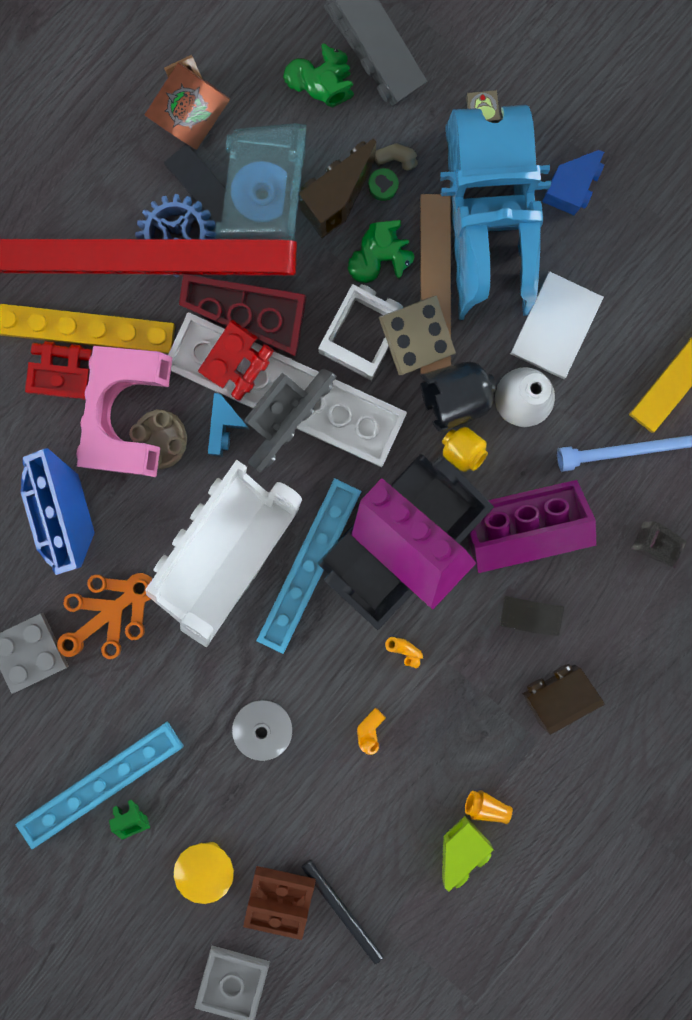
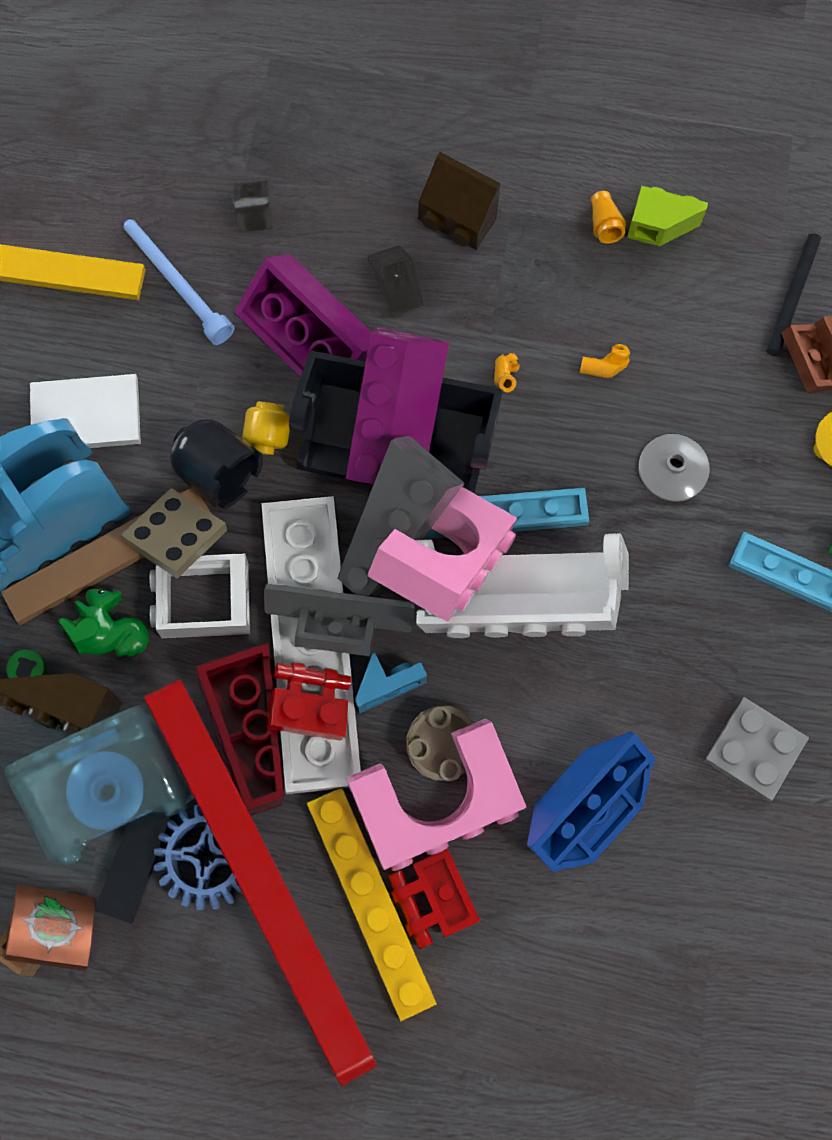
camera: 120 degrees left, 15 degrees down
(110, 611) = (656, 687): orange plant -> none
(254, 491) = (440, 580): none -> bright pink arch
(332, 503) = (406, 497): none -> dark grey wedge
(524, 397) = (174, 396): white cone -> none

